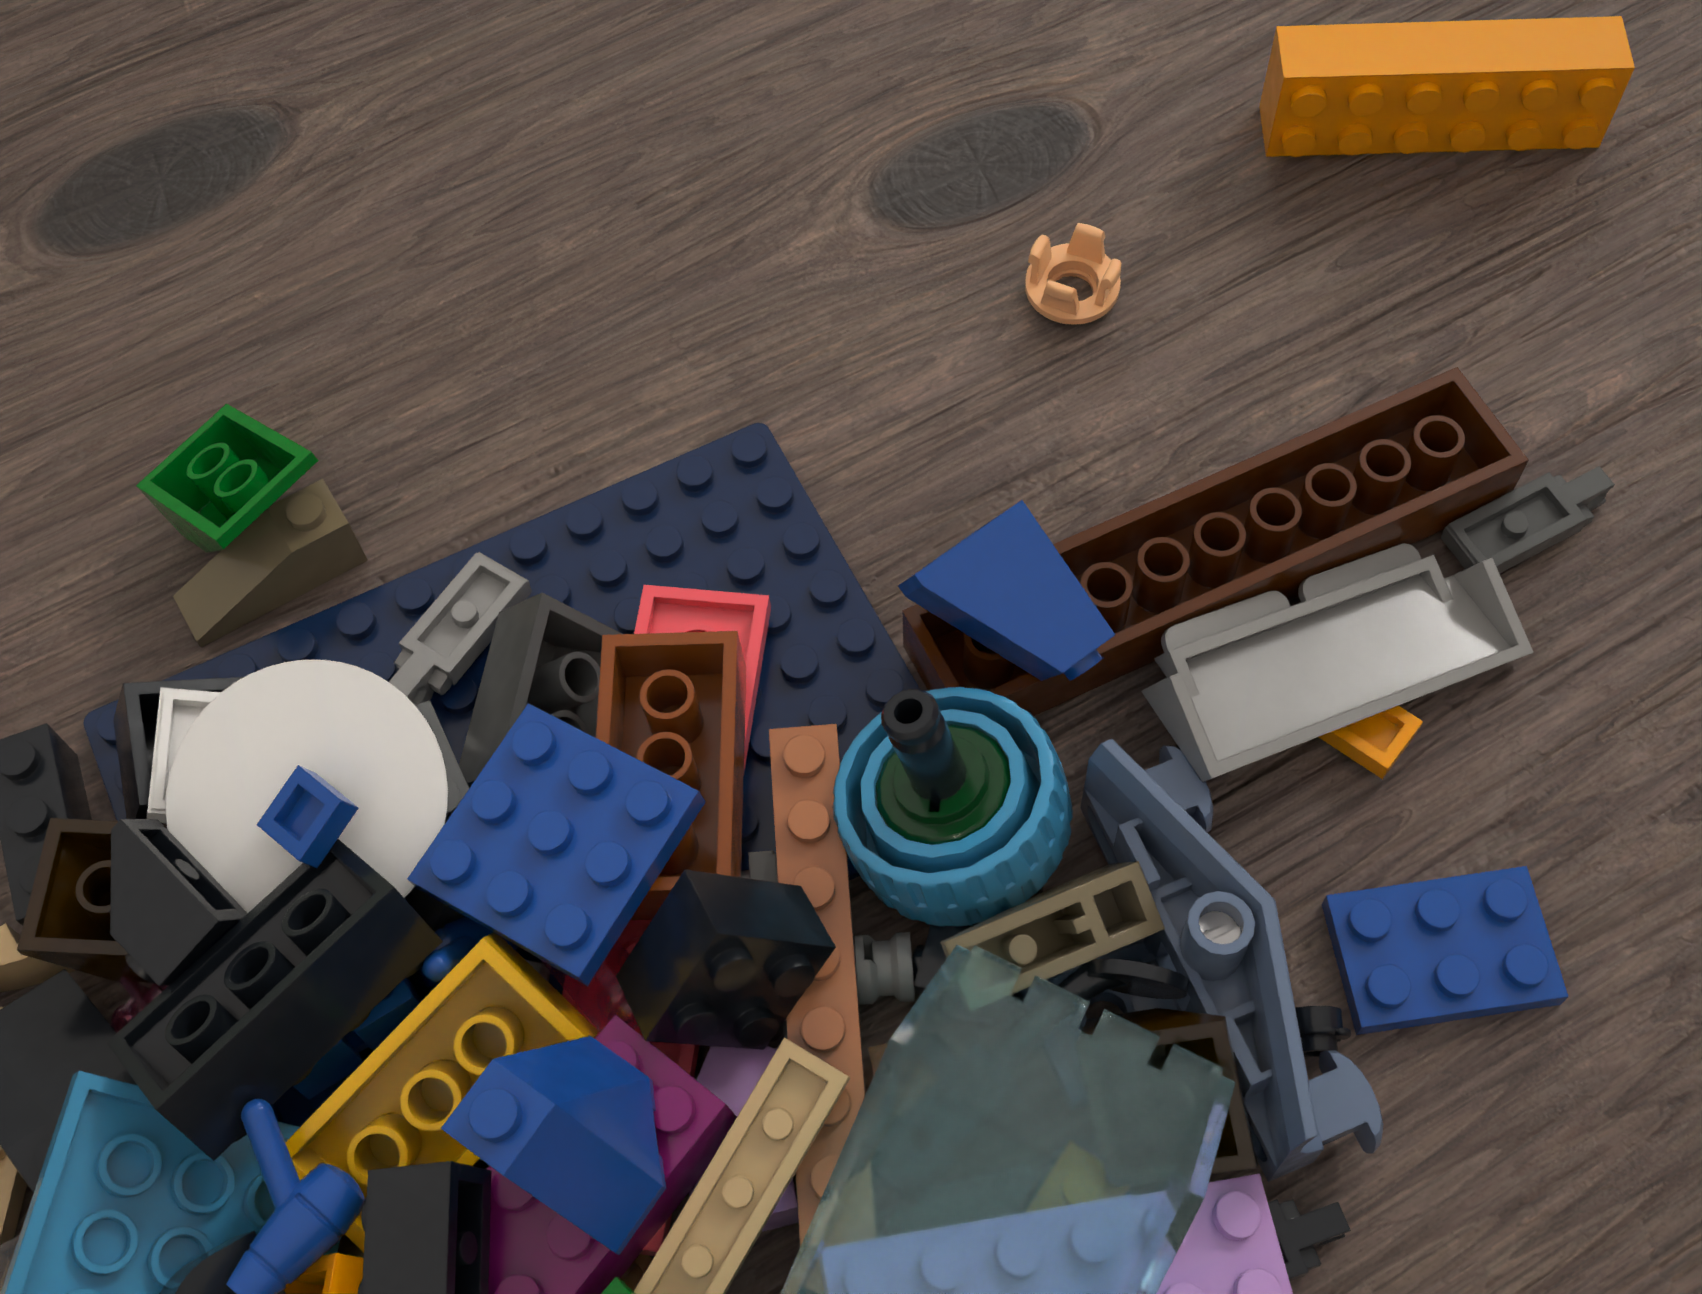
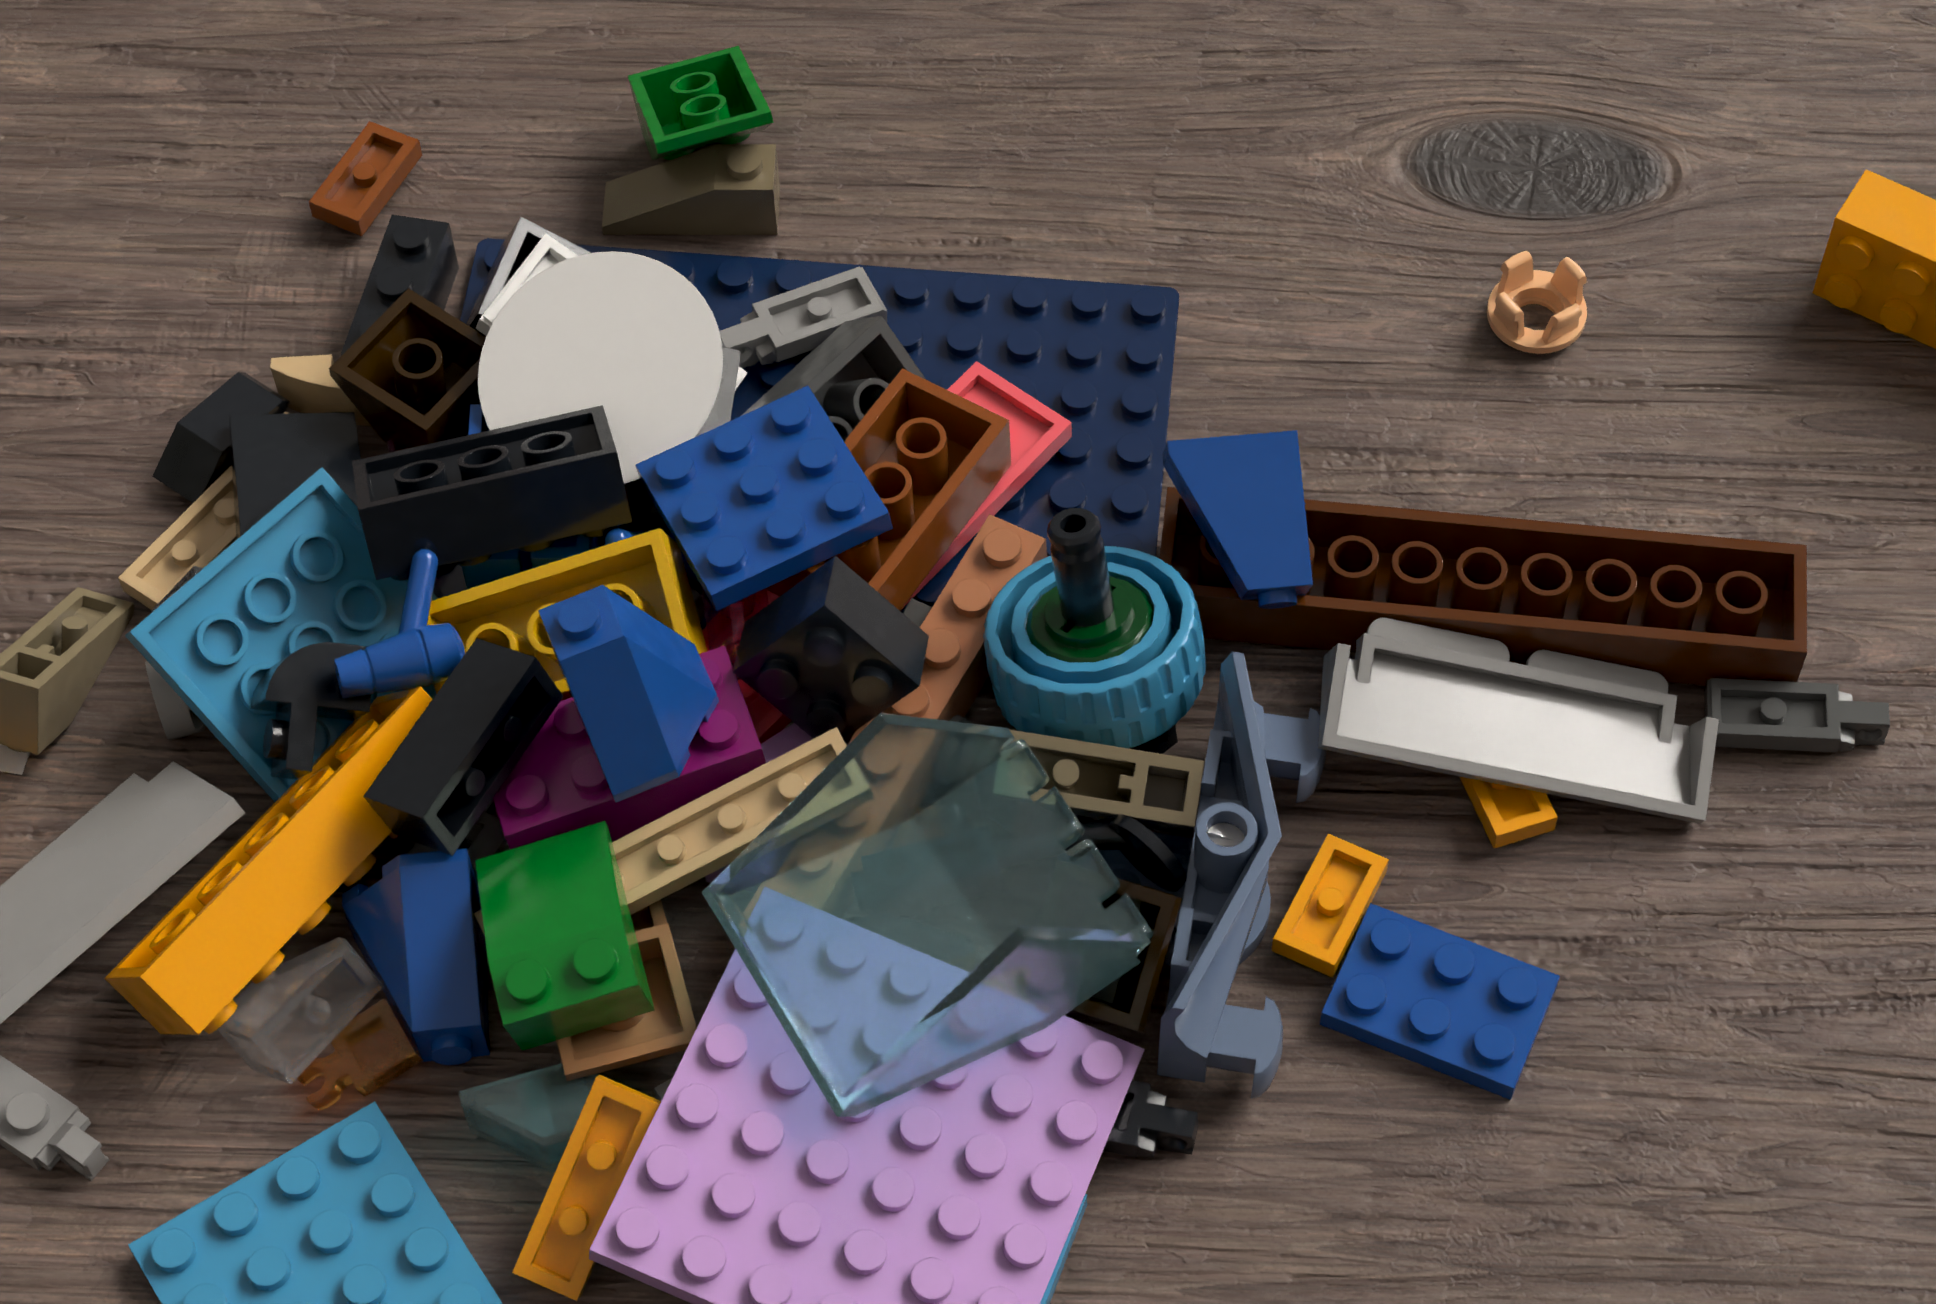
camera: 30 degrees right, 5 degrees down
(163, 901) = (451, 382): black slope -> none
(307, 816) = (590, 377): blue plate -> none
(1304, 914) = (1330, 905): none -> light orange plate
(1320, 1029) = (1285, 987): black plate -> none

